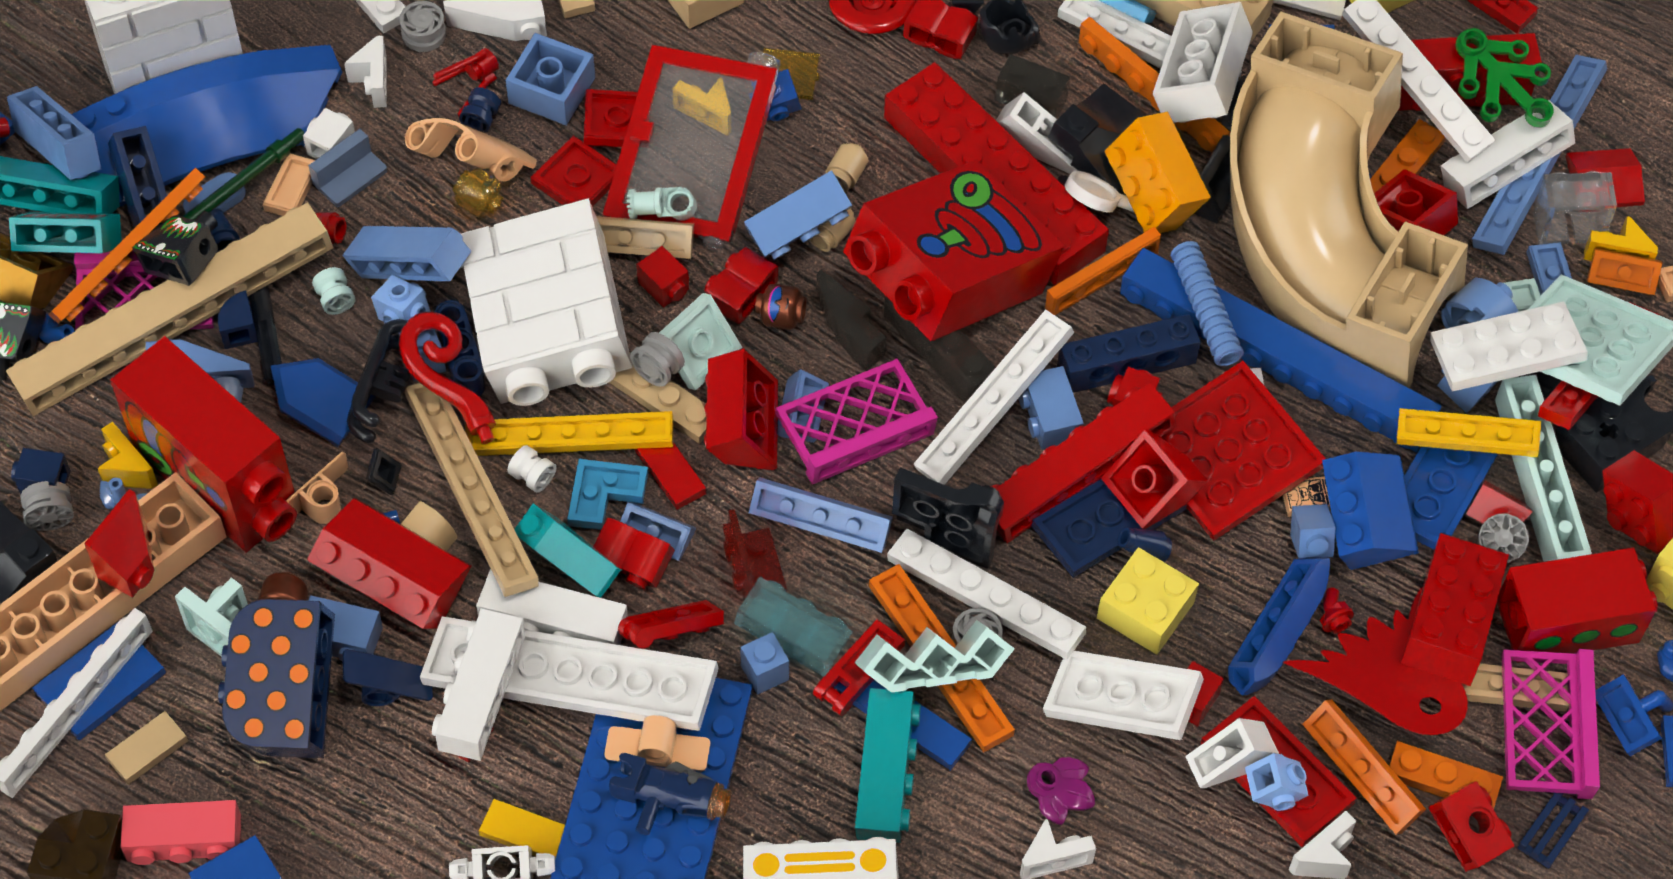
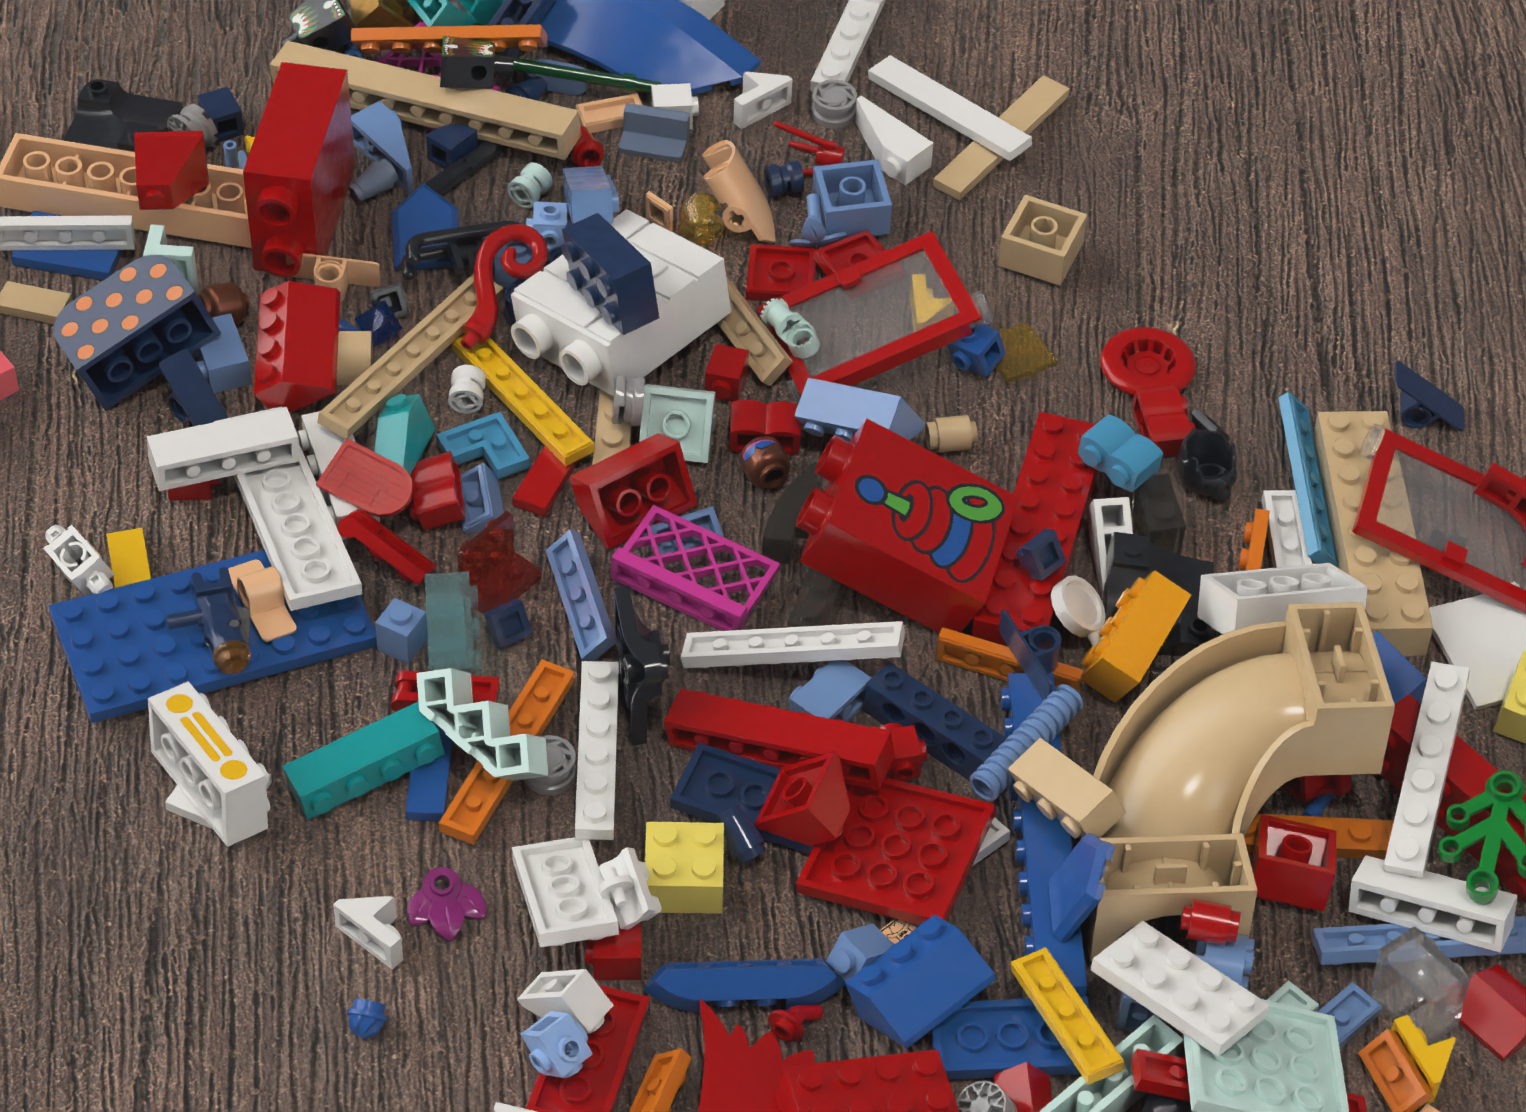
camera: 55 degrees right, 10 degrees down
(401, 491) = (379, 321): none -> clear blue tile
(445, 216) = (659, 211): none -> light nougat slope
(560, 283) = (610, 273): none -> dark blue brick
(565, 123) = (813, 230): none -> medium blue plant
(599, 595) = (367, 480): none -> window
(810, 581) = (508, 623): none -> dark blue tile
(981, 69) = (1120, 453): none -> dark azure brick
(1046, 181) = (1042, 554): none -> dark blue tile
(1125, 250) = (1035, 651): none -> dark blue piece
(1166, 646) = (627, 889): none -> white hips
(1285, 306) = (1065, 791): none -> tan brick
(1376, 349) = (1076, 885): none -> blue tile
(1470, 290) = (1210, 922): none -> red brick

